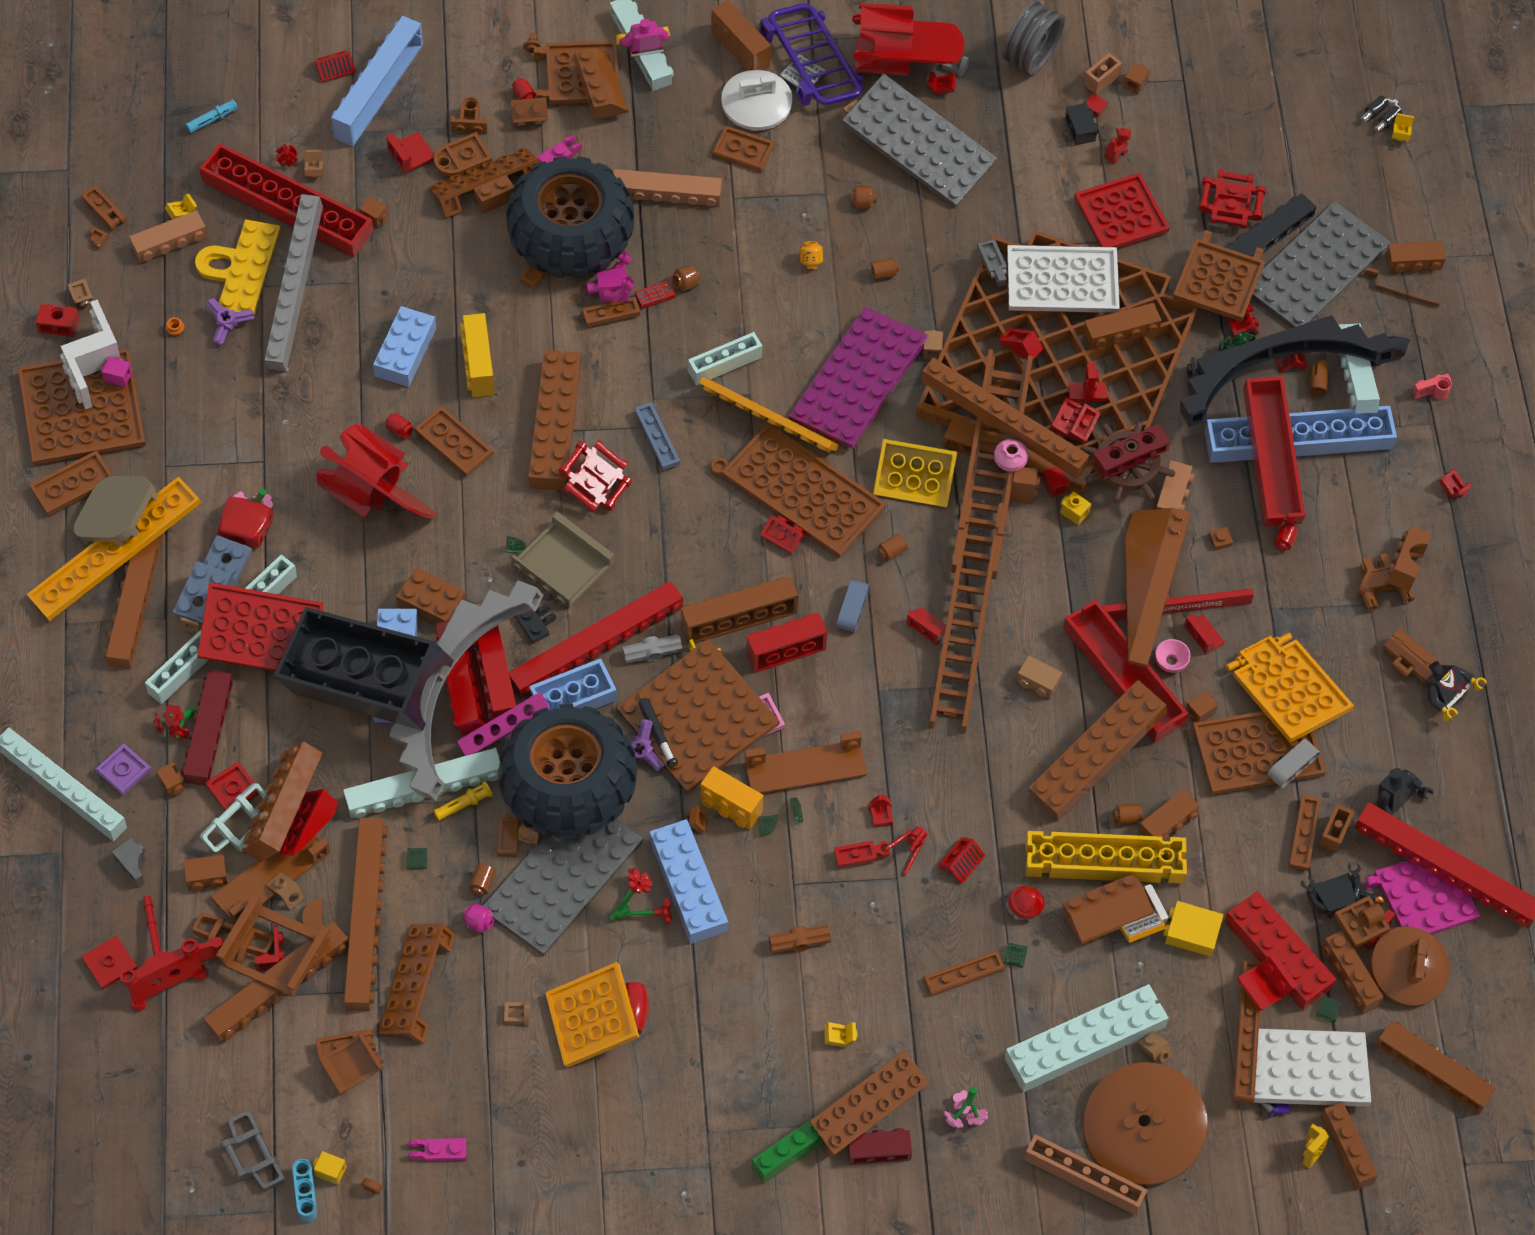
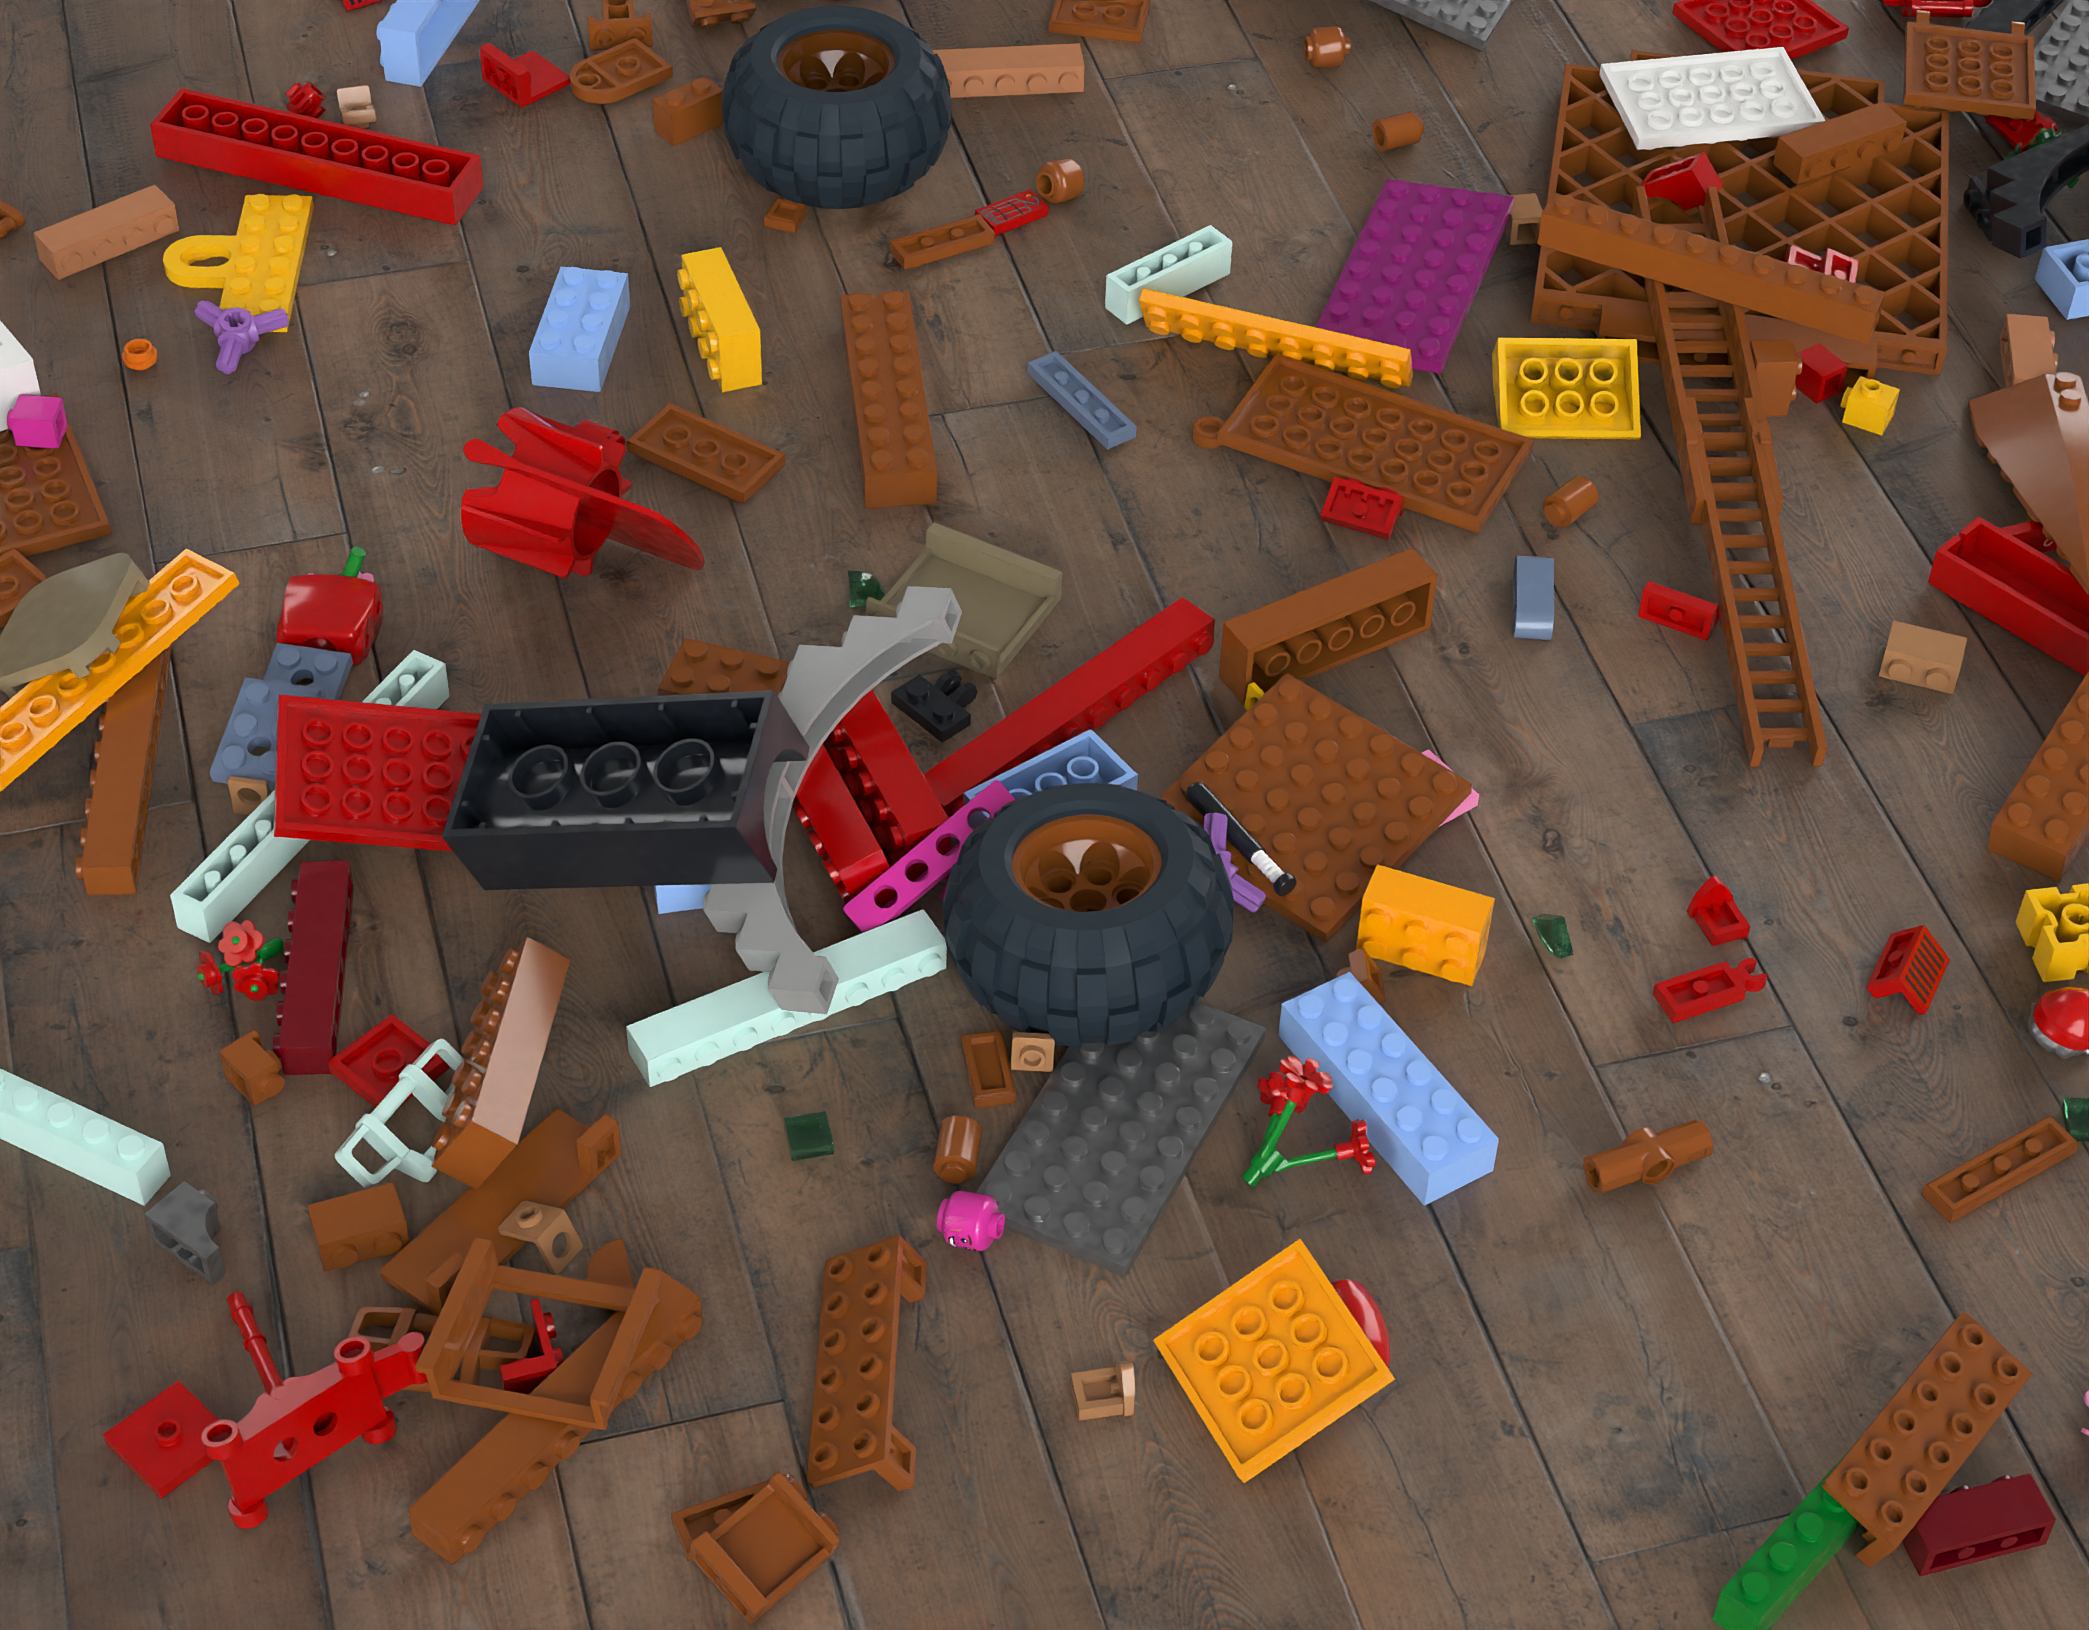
camera: 10 degrees left, 15 degrees down
(123, 769) = (146, 1066): medium lavender plate -> none
(181, 208) = (135, 181): yellow bracket -> none
(211, 116) = (190, 54): medium azure pin -> none
(293, 283) = (354, 258): light grey brick -> none
(312, 815) = (568, 1084): red wedge -> none
(365, 914) = (725, 1259): dark orange brick -> none
(376, 211) = (491, 154): dark orange brick -> none
(448, 190) = (611, 120): dark orange bracket -> none
(471, 797) = (893, 1009): yellow pin -> none
(594, 476) = (986, 465): brick -> none
(613, 284) = (940, 197): dark pink torso -> none
(652, 649) = (1179, 713): light grey piece -> none
(767, 824) = (1503, 970): clear green tile -> none
(786, 642) = (1435, 662): red brick -> none
(806, 765) = (1551, 857): dark orange bracket -> none
(811, 254) = (1267, 124): light orange head -> none
(840, 1035) = (1802, 1320): yellow bracket -> none
(915, 839) = (1807, 947): red plant -> none
(993, 261) = (1585, 89): flat silver hinge -> none
(1008, 461) = (1736, 328): bright pink piece -> none
(1090, 389) = (1826, 223): red bracket -> none
(1125, 453) = (1931, 304): brick -> none

